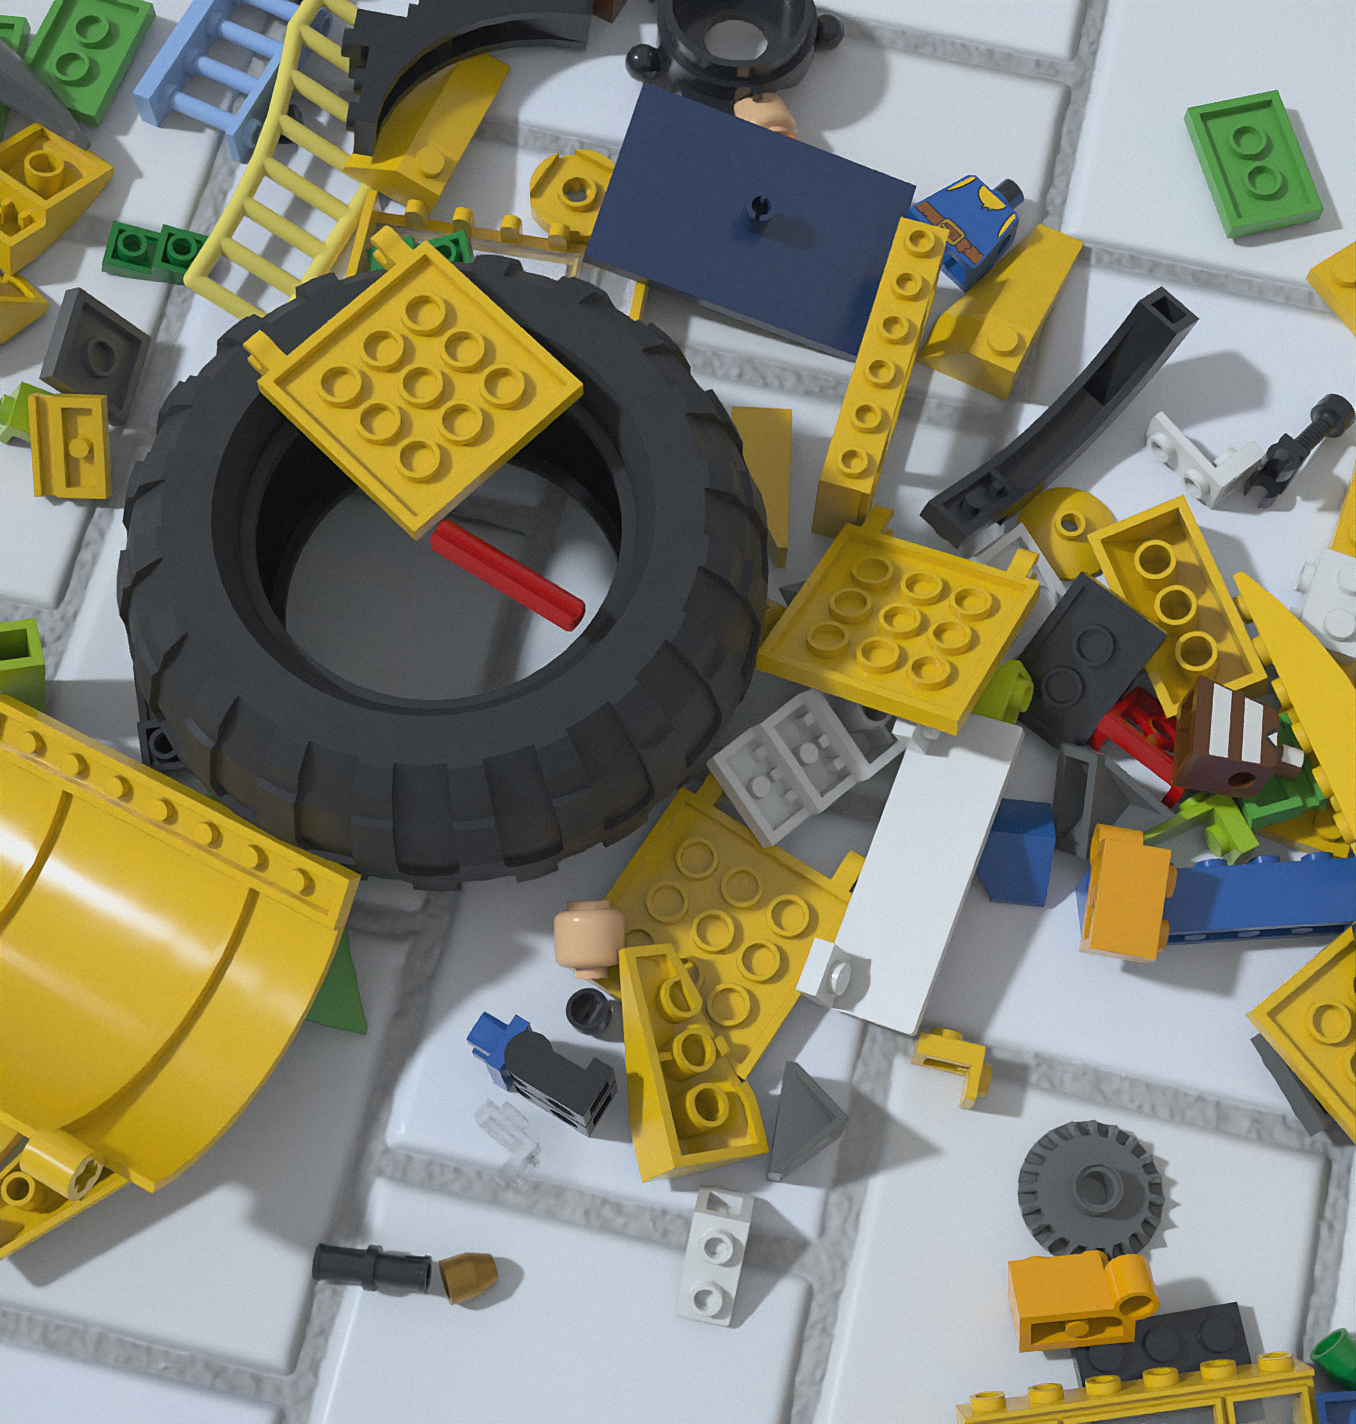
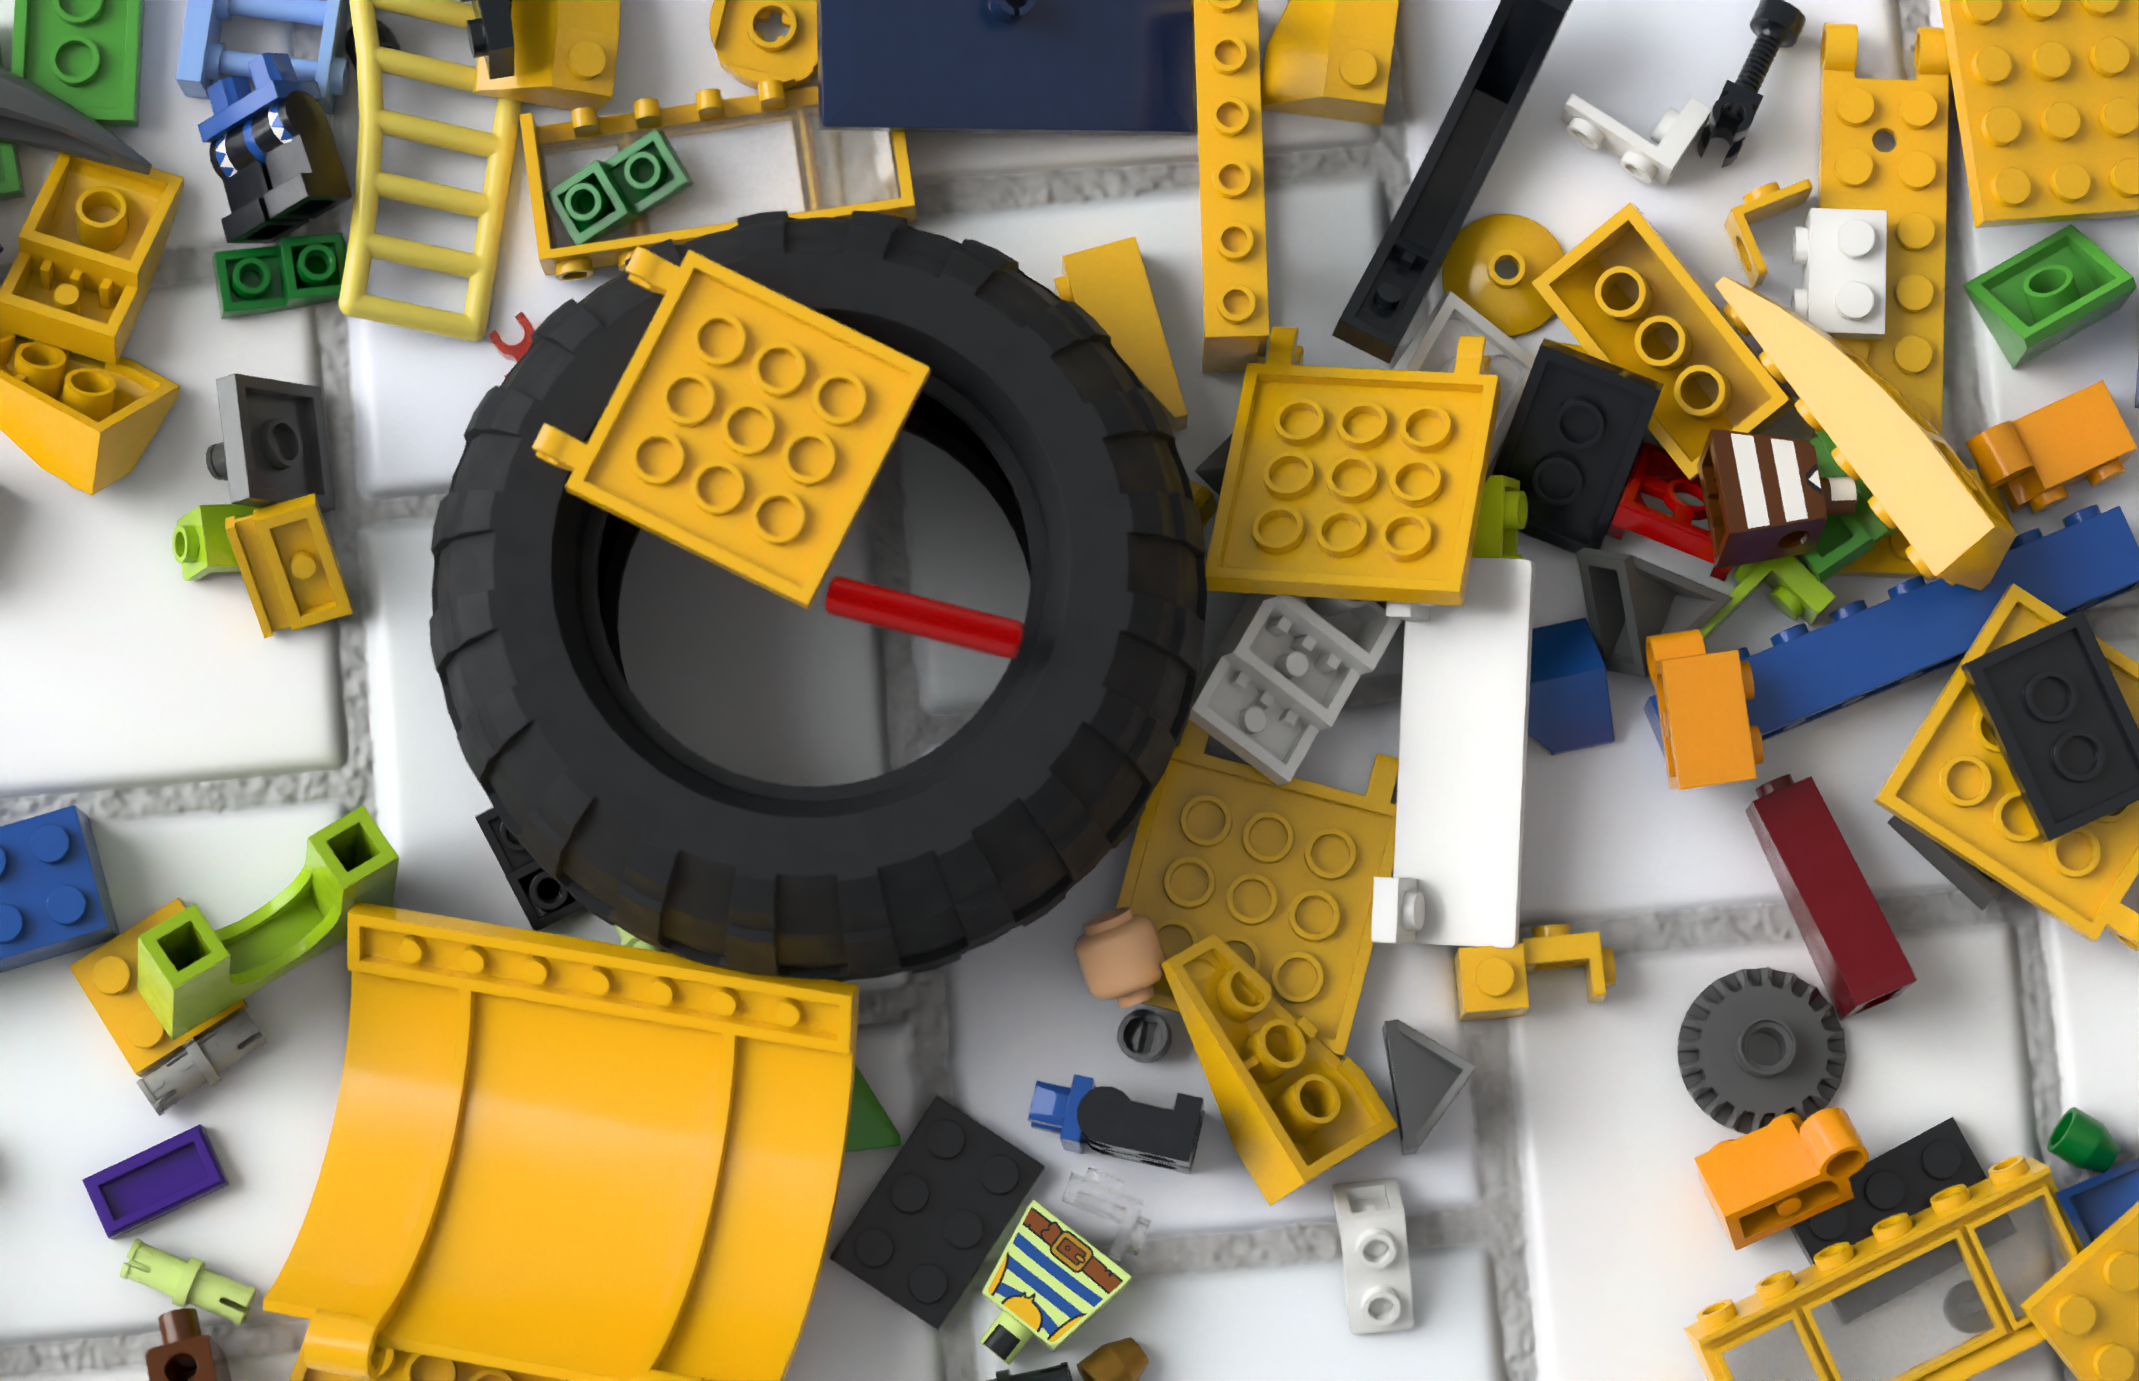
camera: 15 degrees left, 10 degrees up
(180, 162) = (272, 151): none -> black hips
(372, 1099) = (937, 1212): none -> black plate
(437, 1186) = (1047, 1285): none -> torso
(884, 1060) = (1491, 982): none -> yellow brick
(1185, 1086) = (1828, 897): none -> dark red slope
(1281, 541) = (1759, 205): none -> yellow bracket

